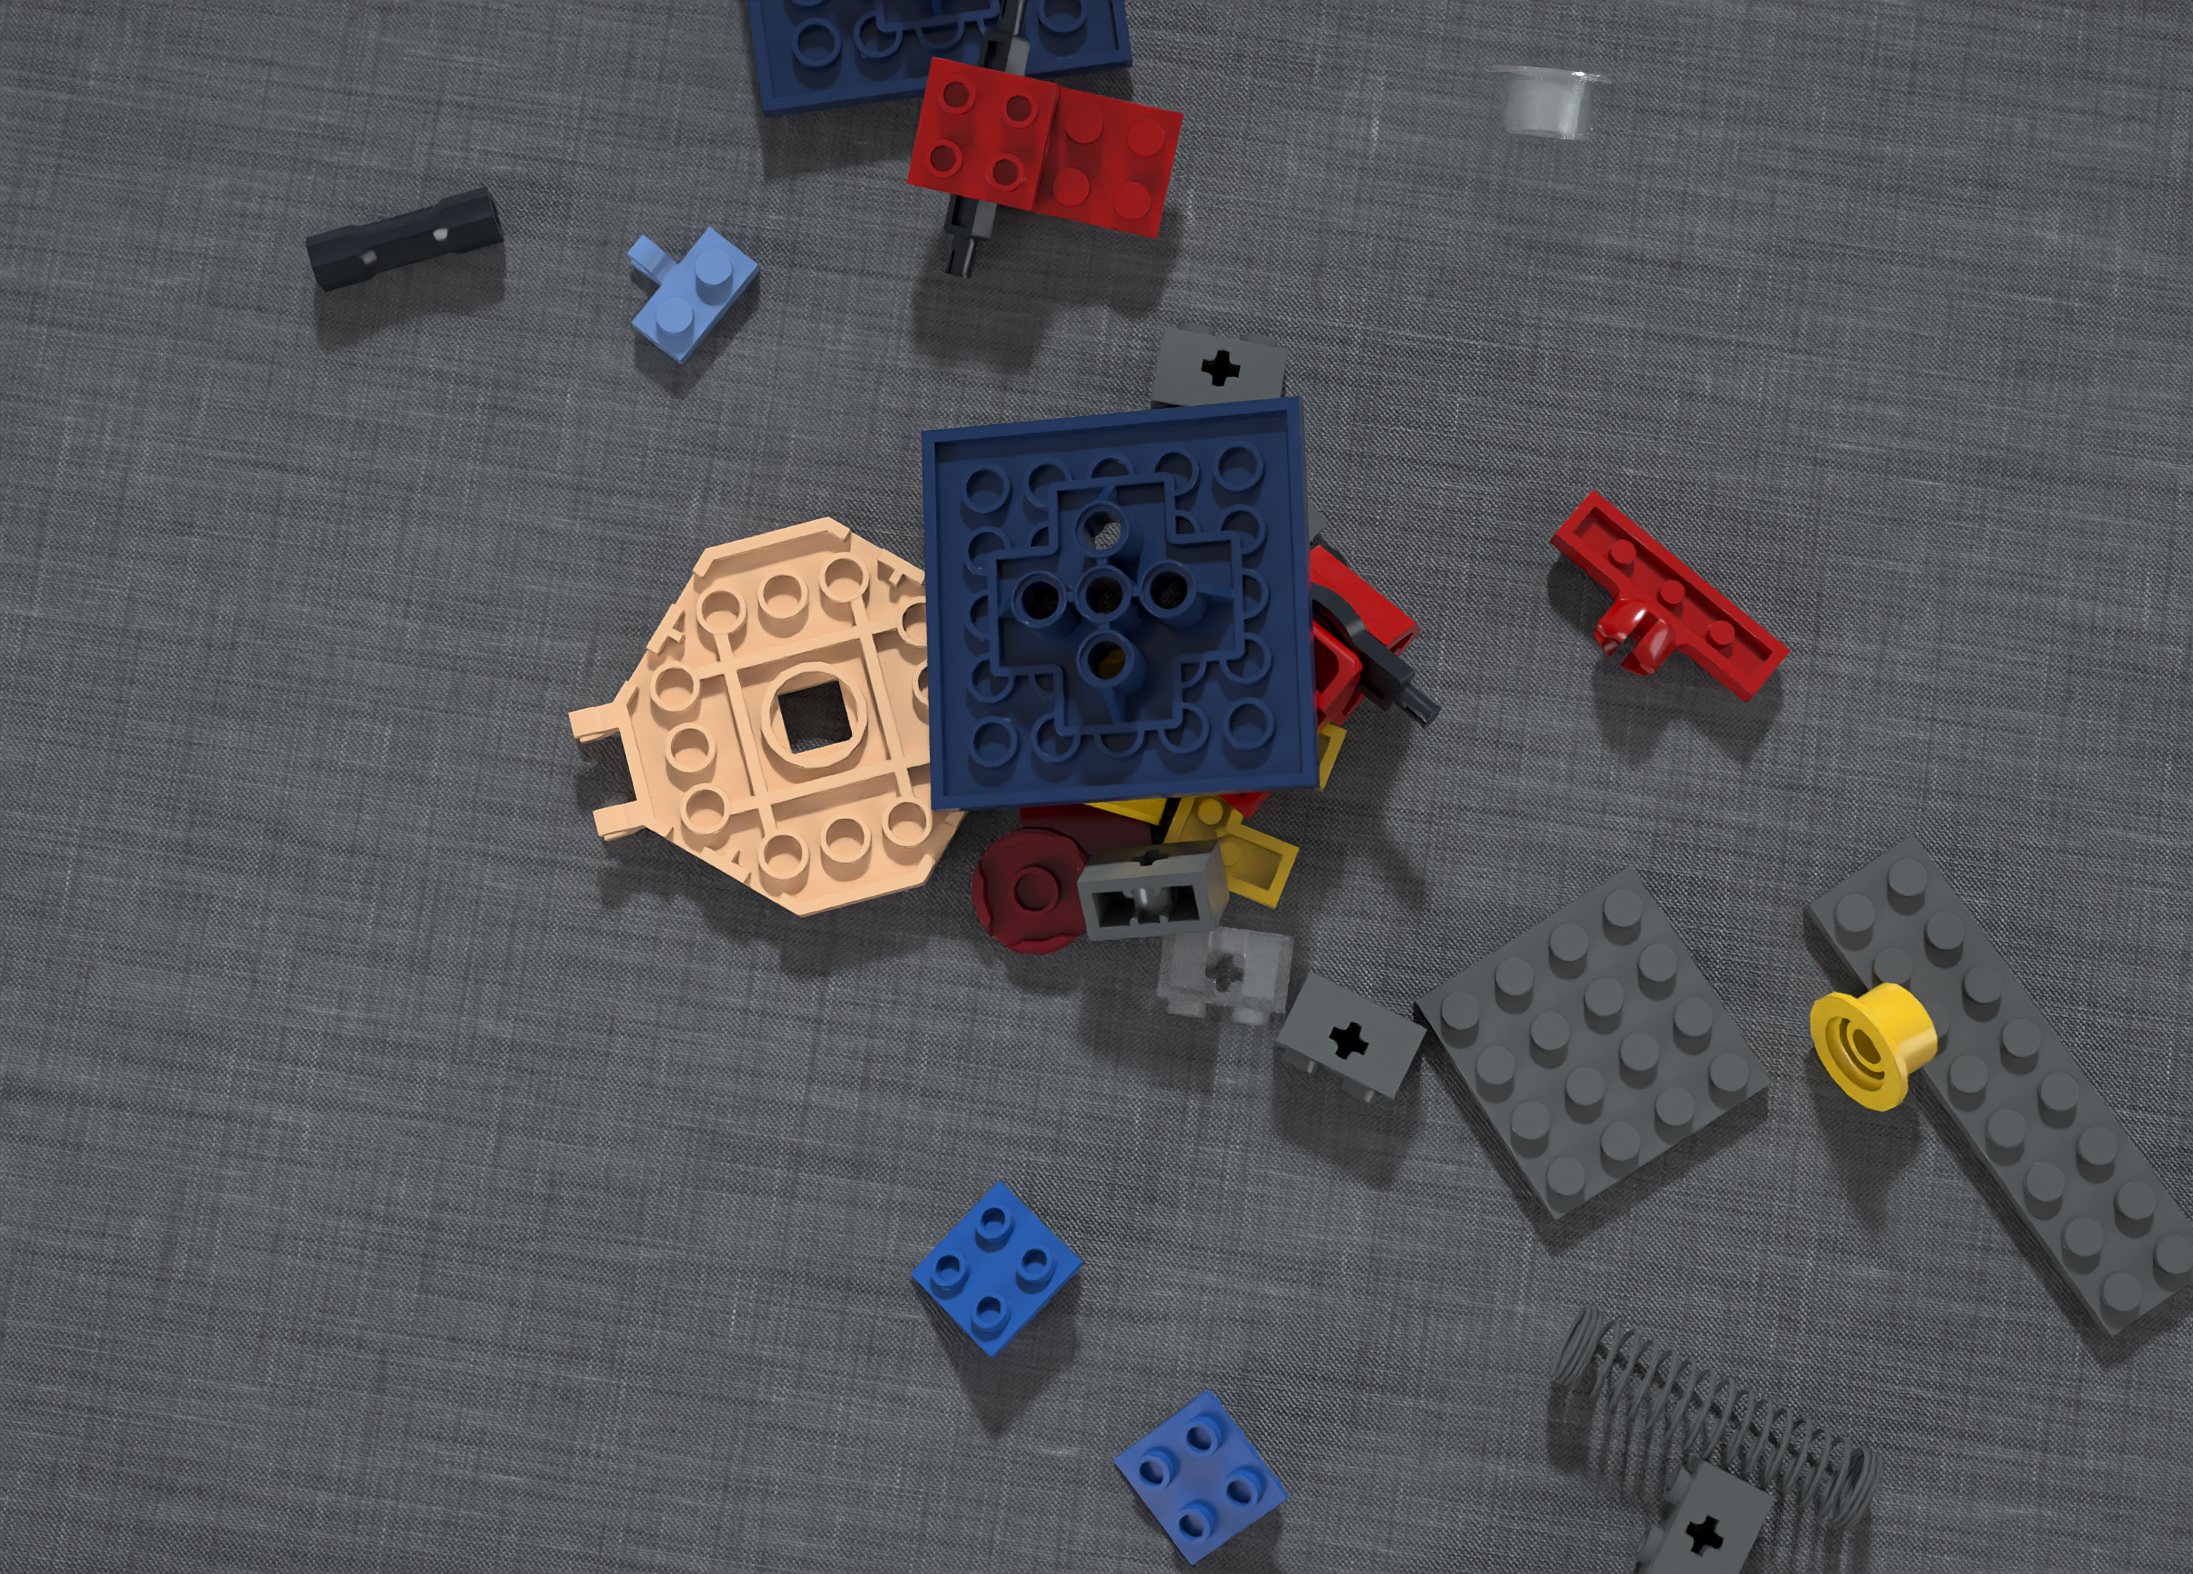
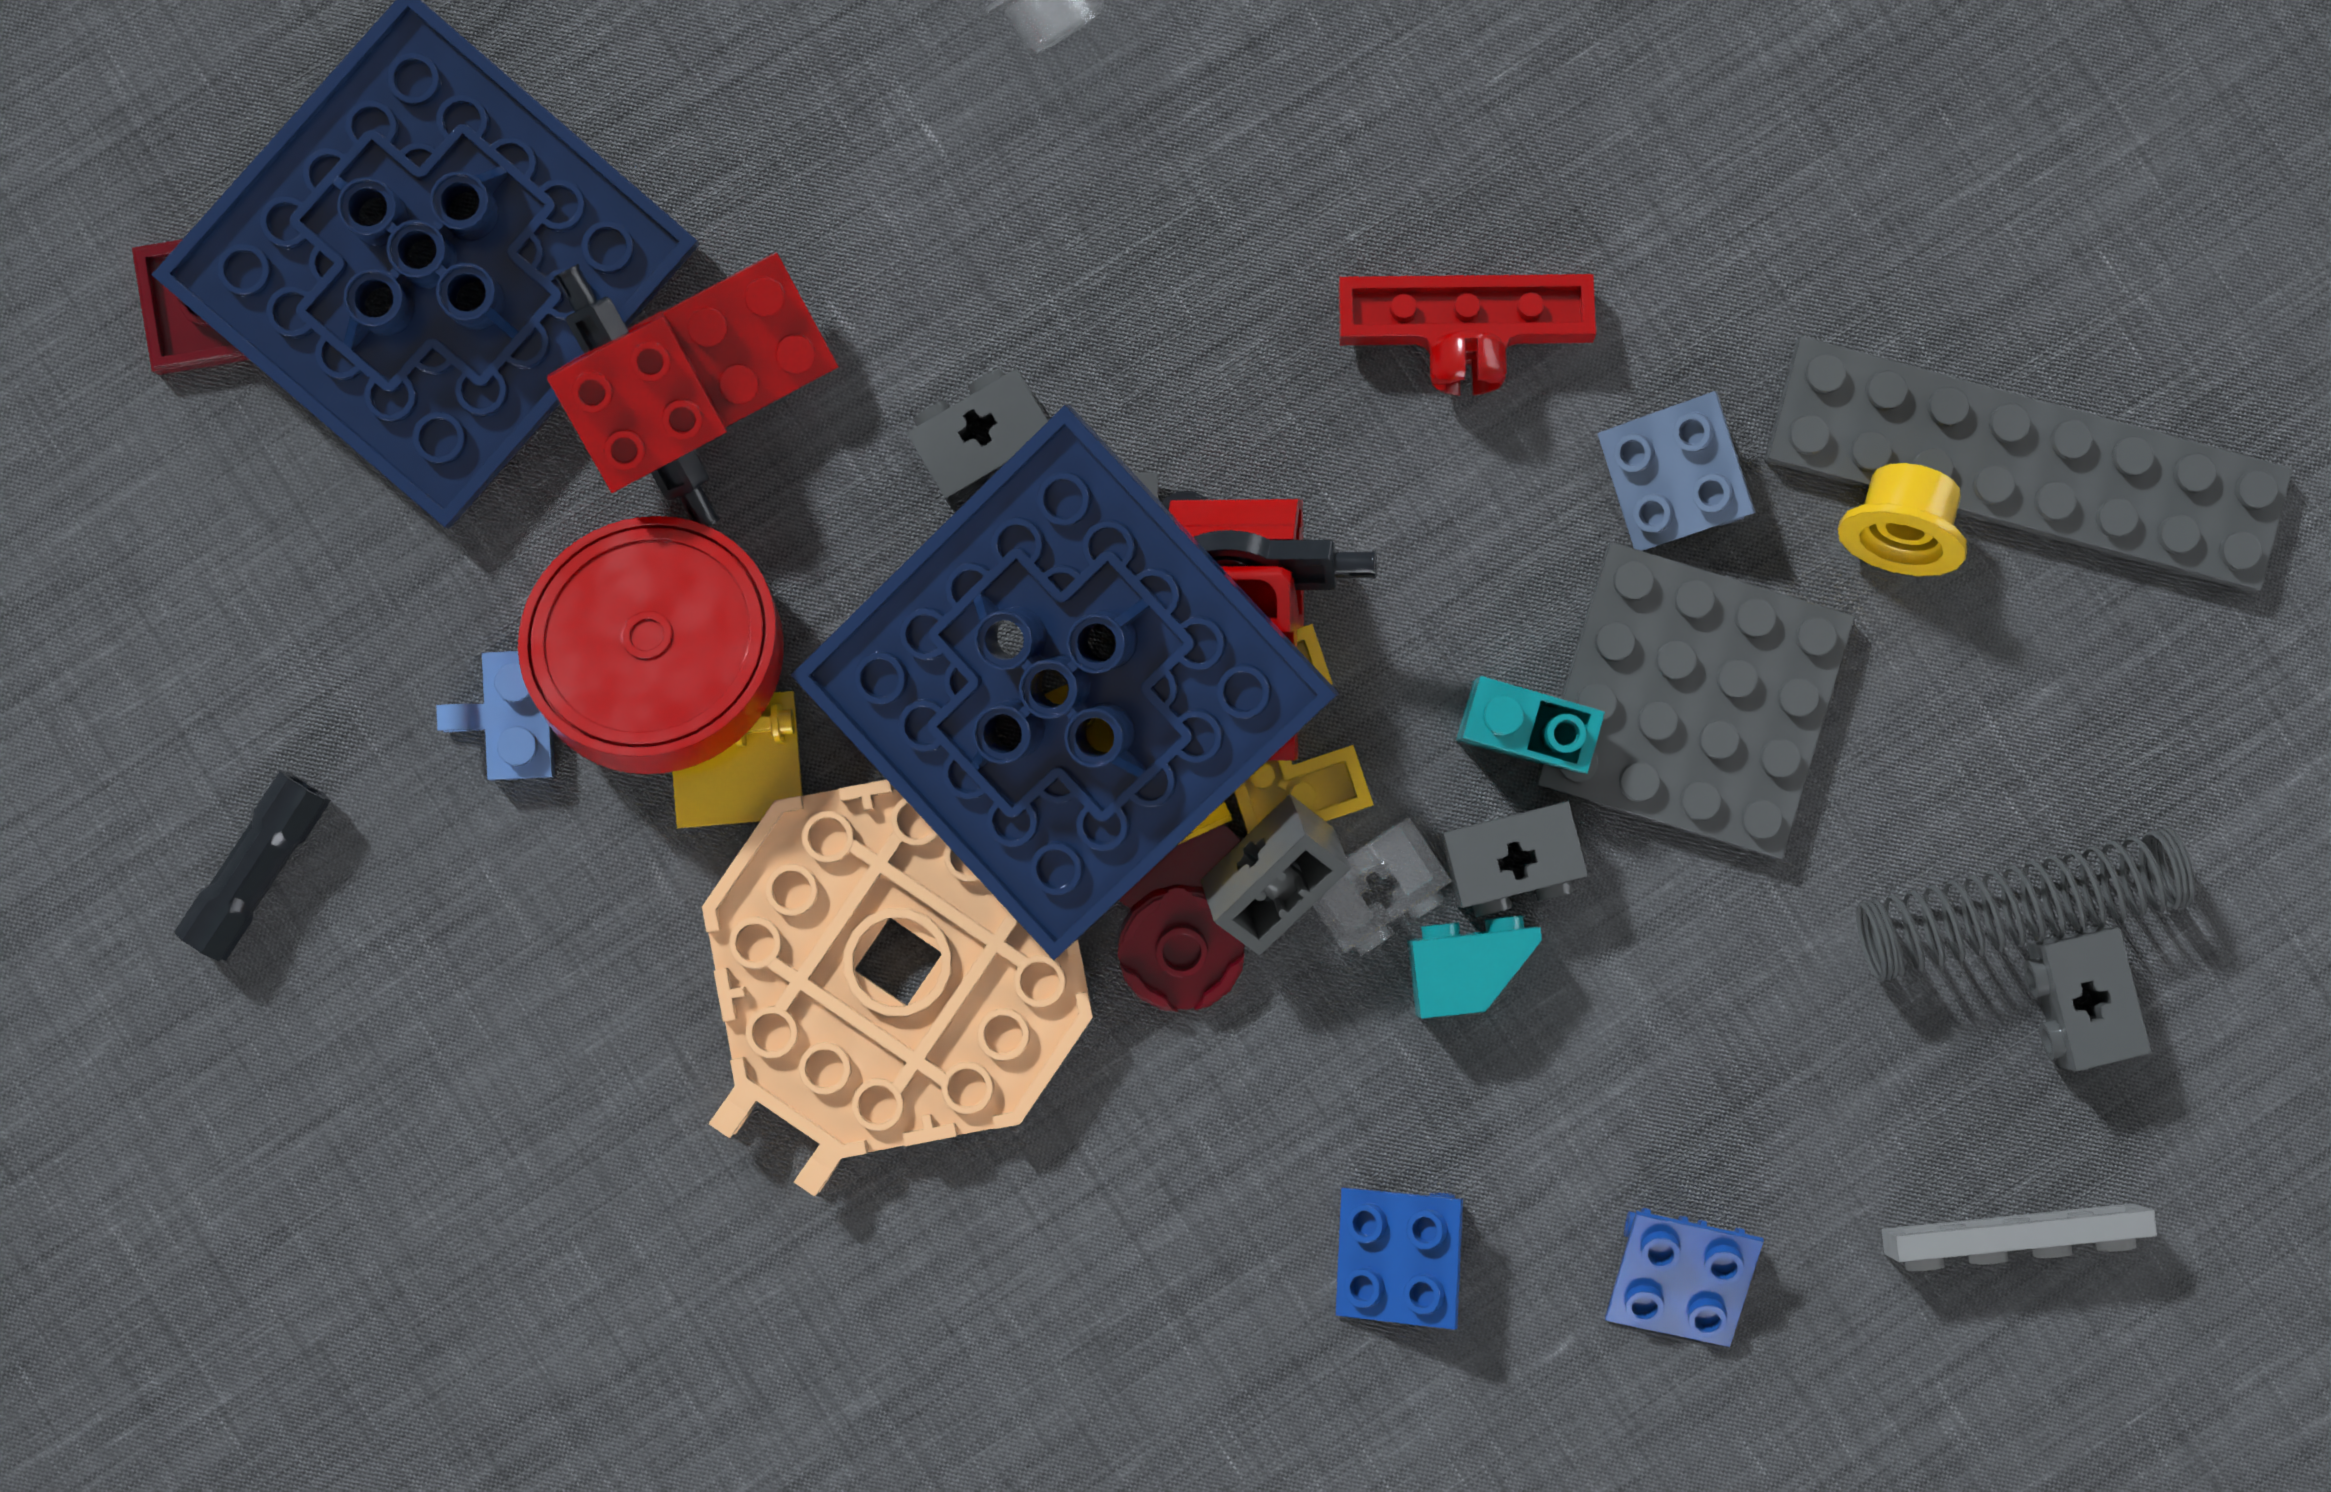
camera: 45 degrees left, 5 degrees up
(825, 460) = (746, 776): none -> yellow hinge
(838, 323) = (651, 644): none -> red brick
(1238, 1093) = (1467, 970): none -> teal slope
(1447, 947) = (1530, 725): none -> teal slope
(1726, 855) = (1676, 472): none -> sand blue hinge

